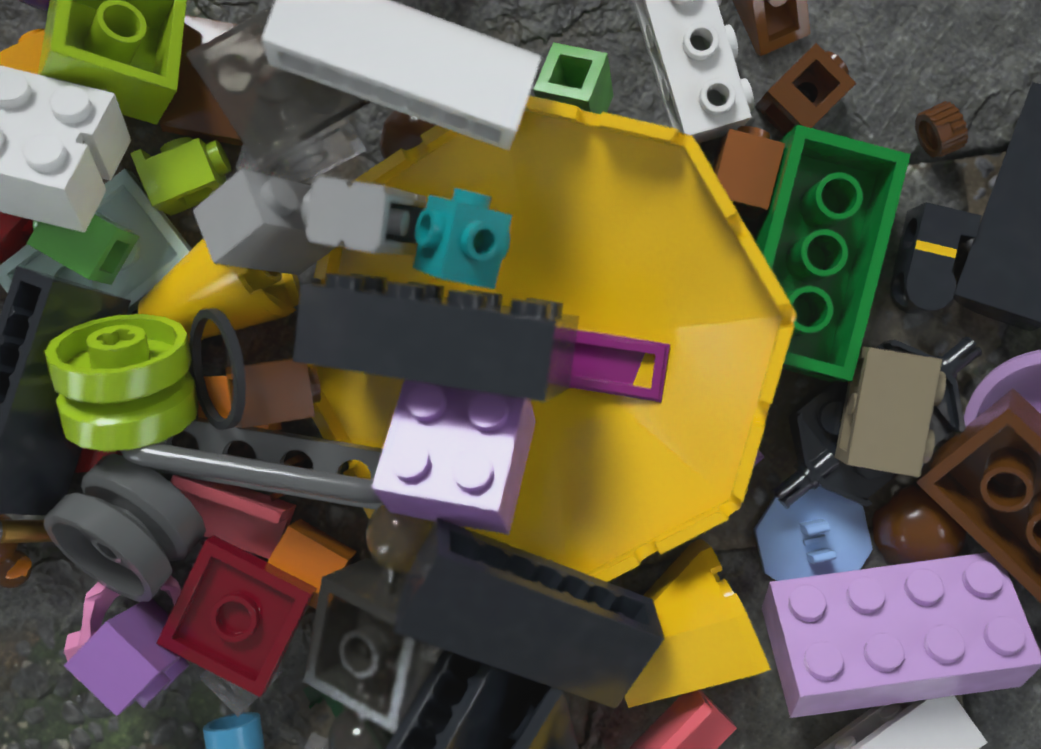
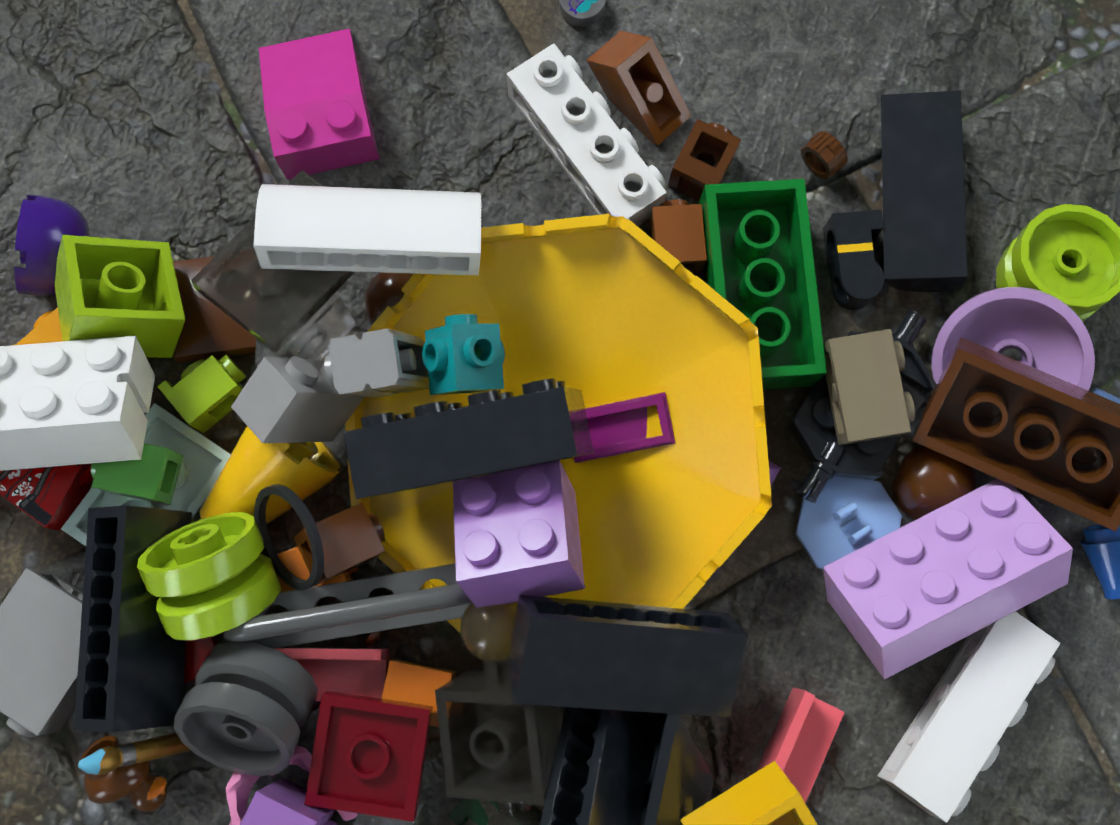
camera: 20 degrees left, 10 degrees down
(576, 78) = (513, 204): bright green brick -> none
(703, 630) = (784, 632): yellow slope -> none

